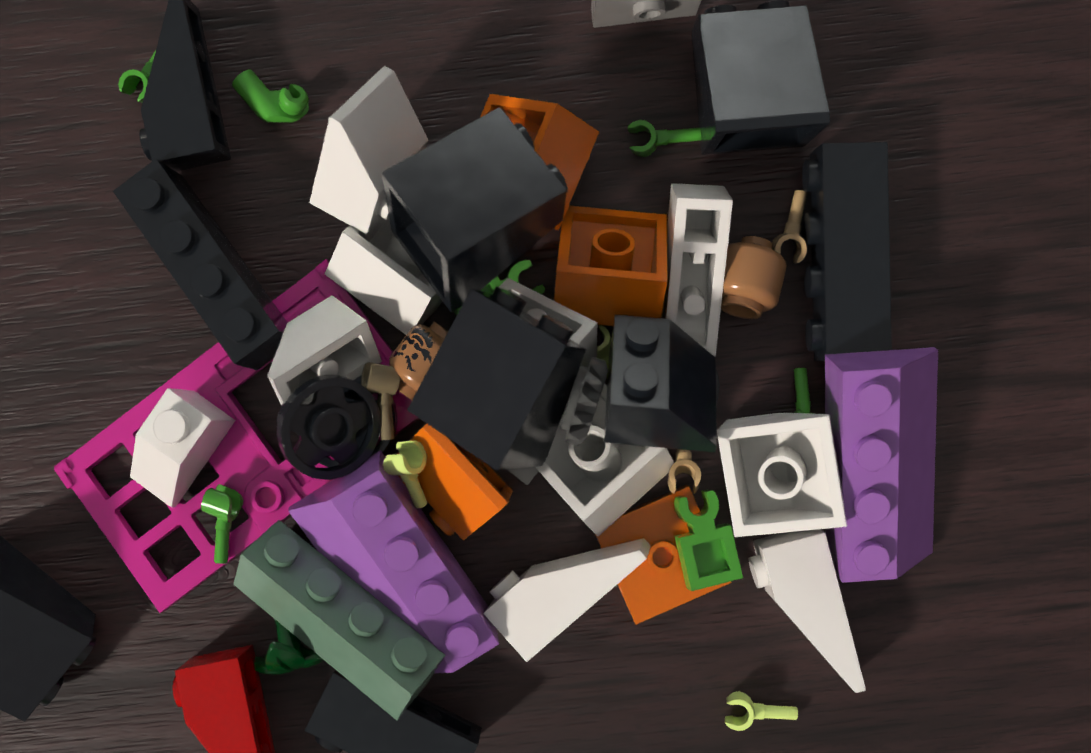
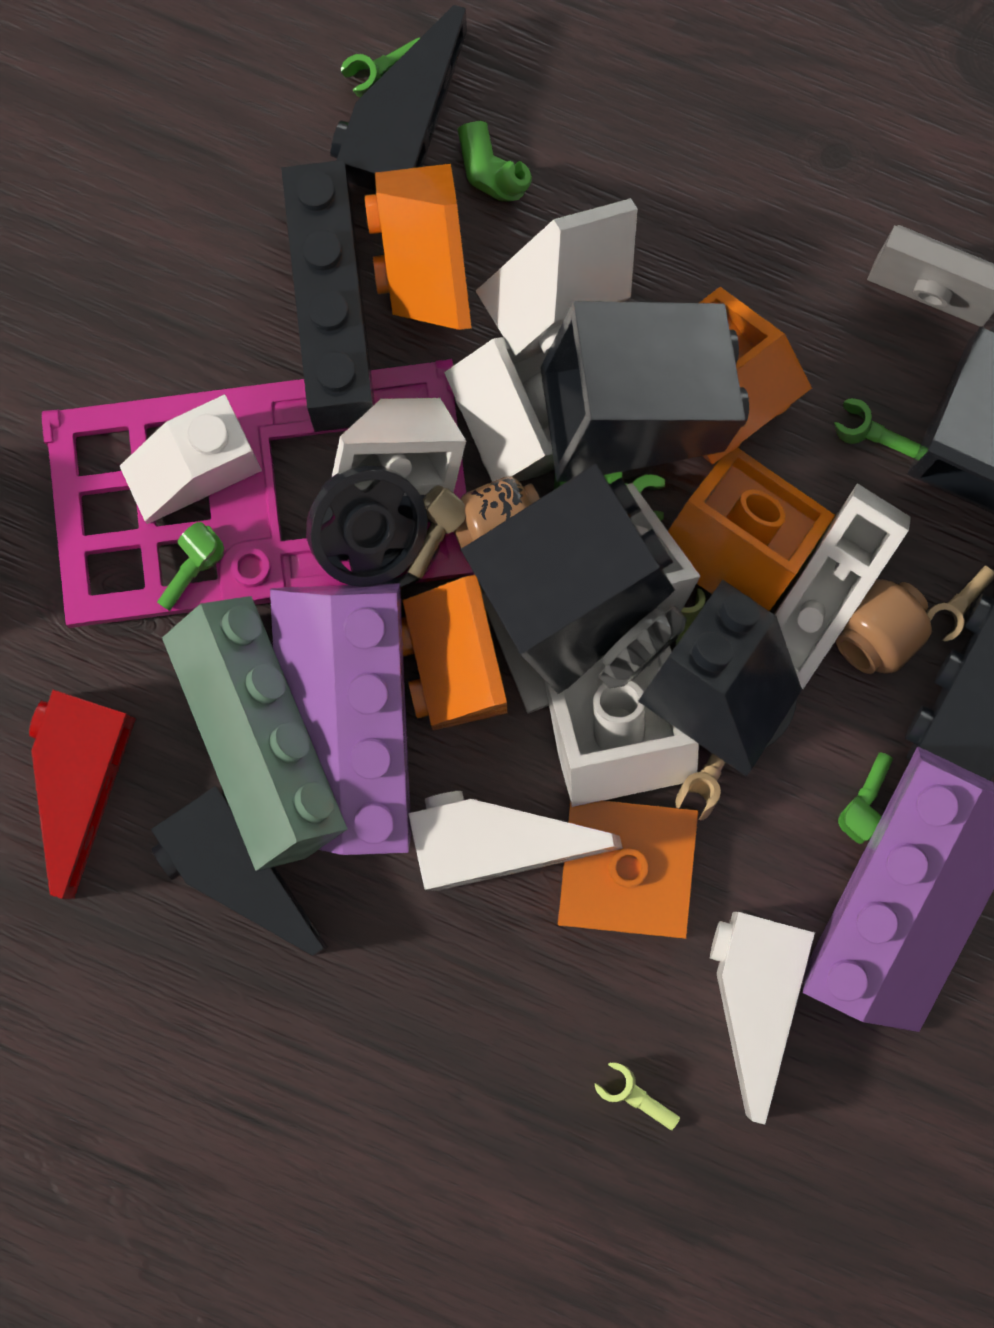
camera: 35 degrees right, 5 degrees down
(250, 189) = (421, 245): none -> orange slope
(285, 654) = (175, 744): dark green plant -> none
(408, 465) = (423, 605): yellowish green hand -> none
(707, 550) = (678, 883): bright green plate -> none
(781, 473) = (801, 842): white slope -> none

